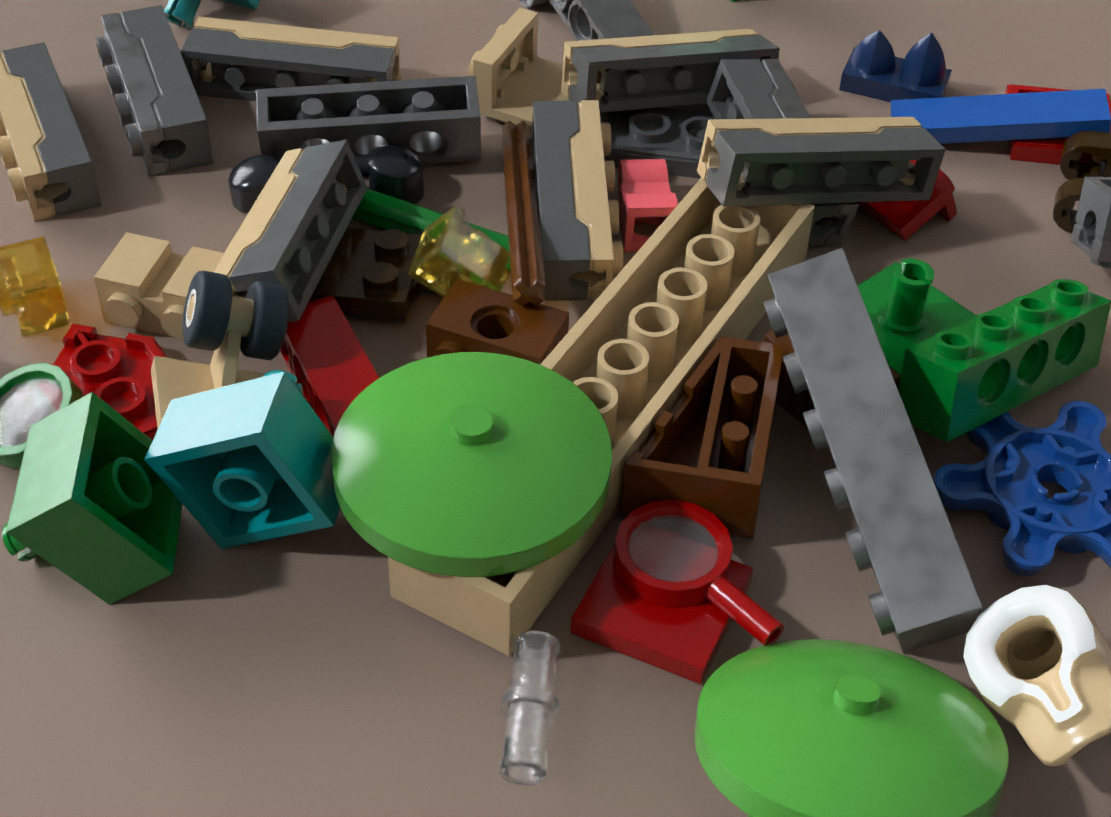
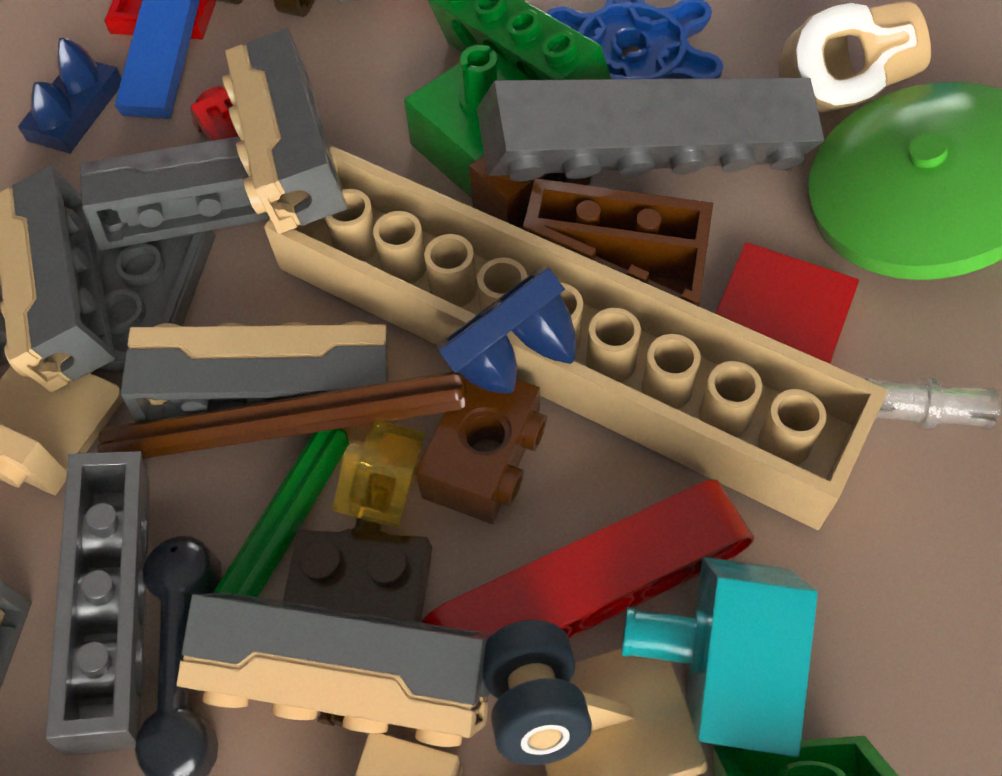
camera: 85 degrees left, 15 degrees up
(471, 464) = (731, 429): bright green dish -> none
(585, 299) = (533, 314): none -> dark blue tile
(642, 198) = (259, 302): coral leg -> none
(681, 557) = (761, 284): red piece -> none

